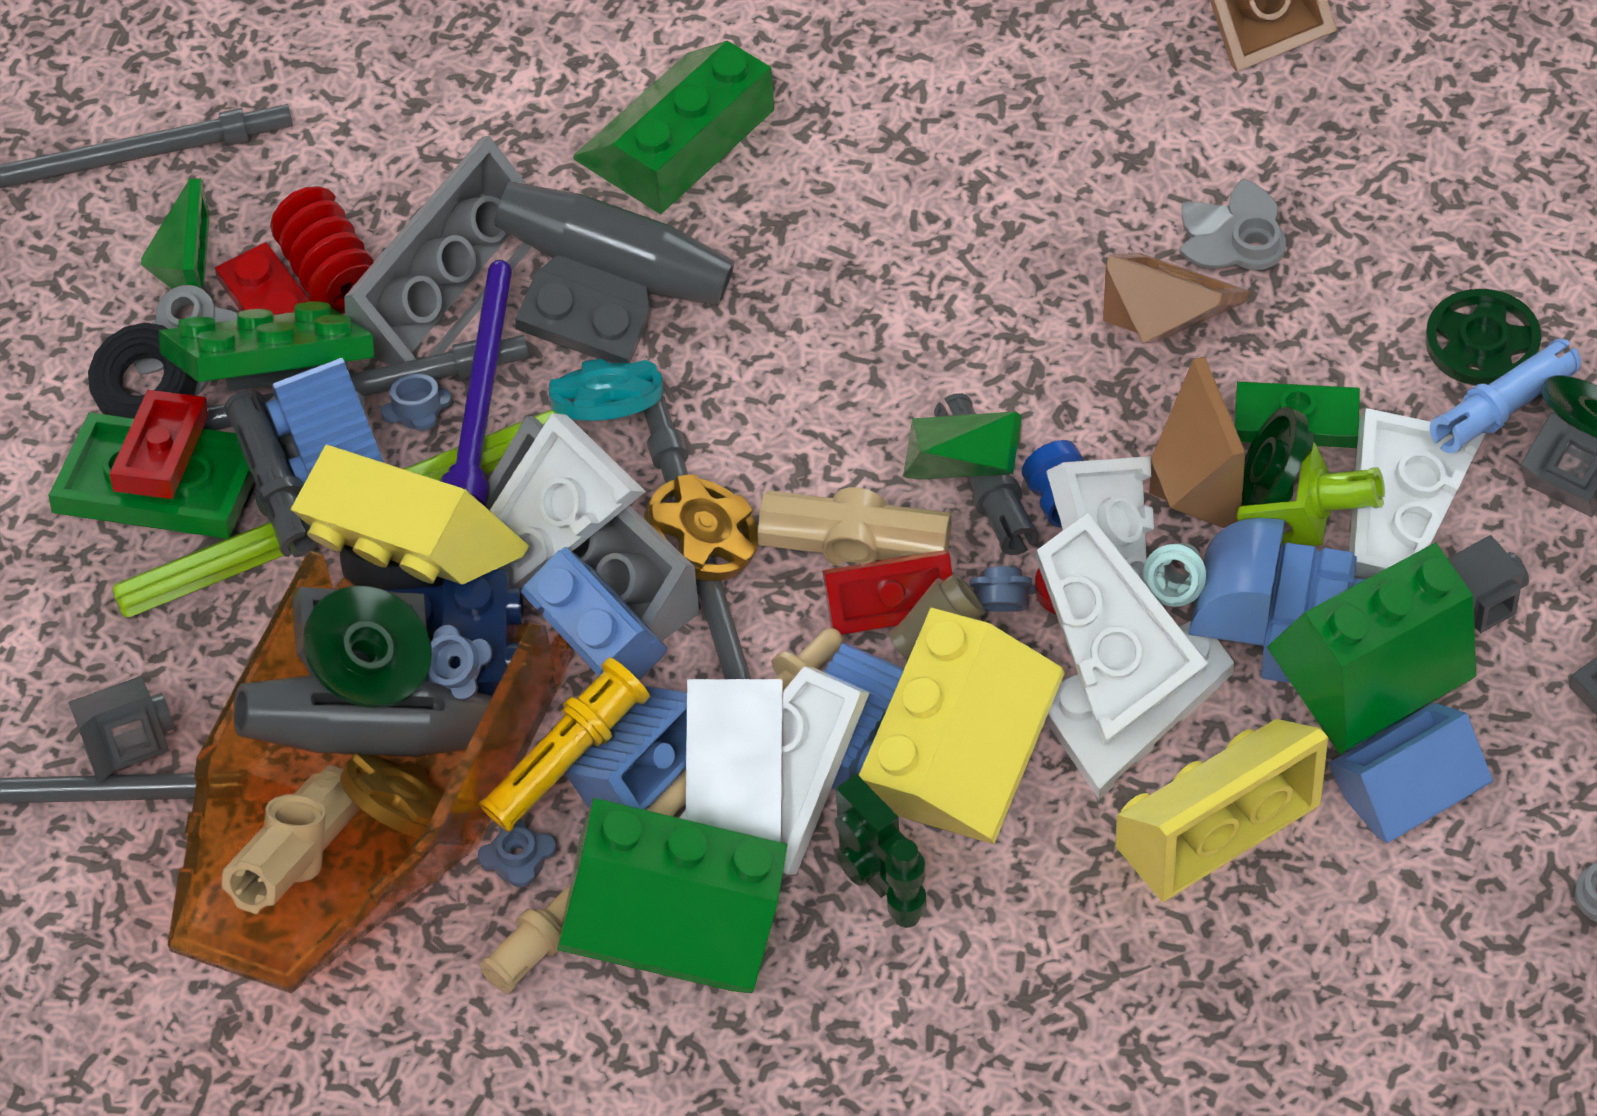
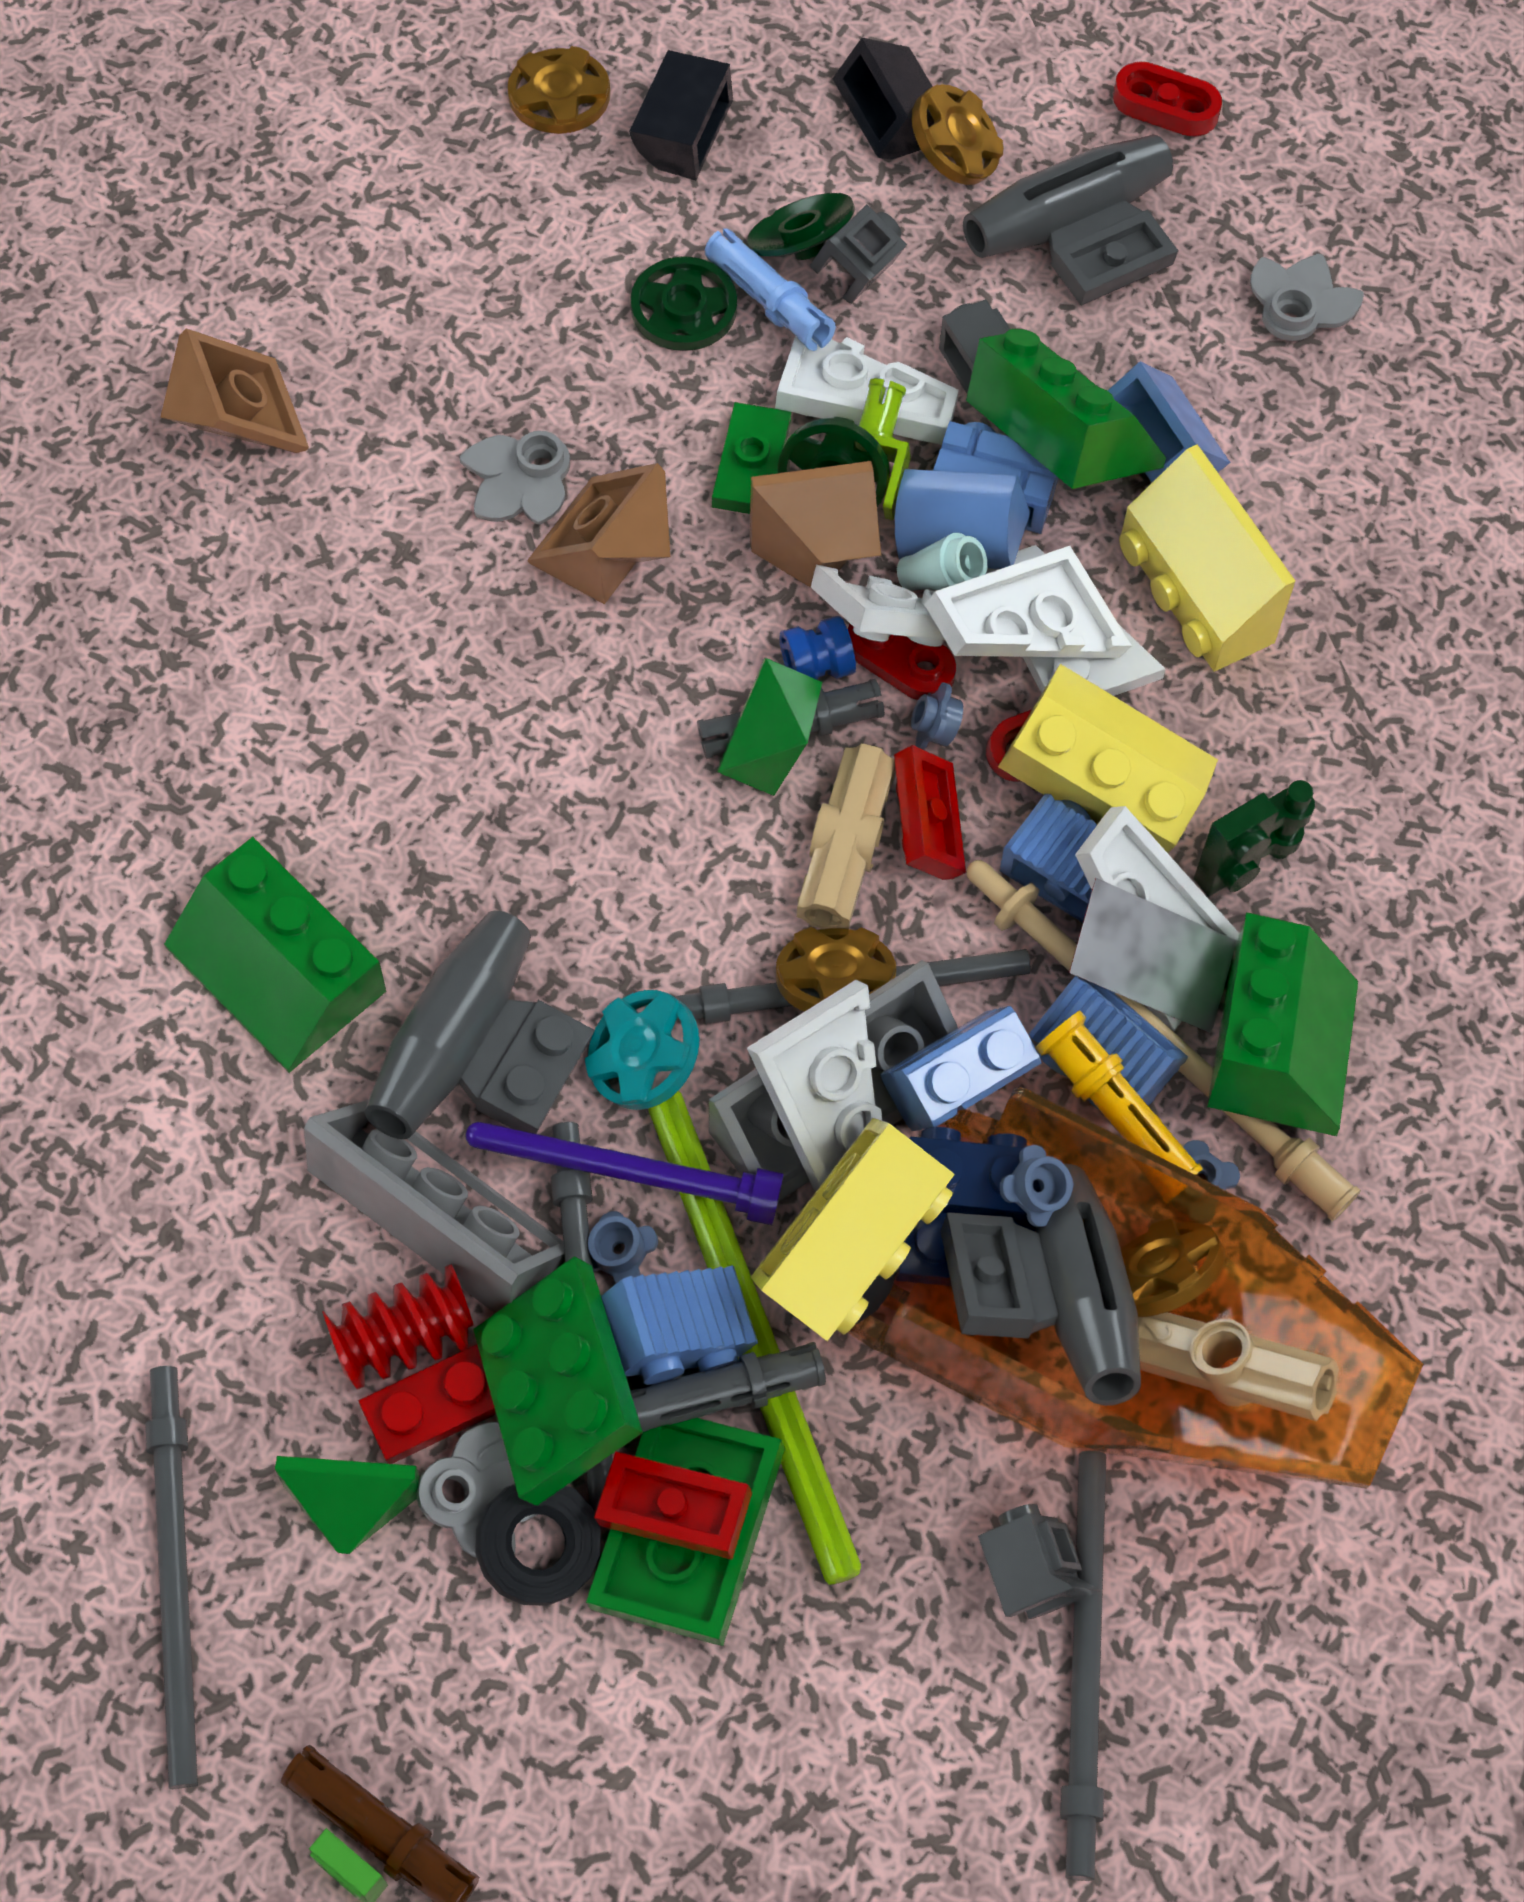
camera: 90 degrees left, 10 degrees up
(382, 629) = (1048, 1251): dark green dish -> none
(948, 595) = (971, 772): dark tan cone -> none

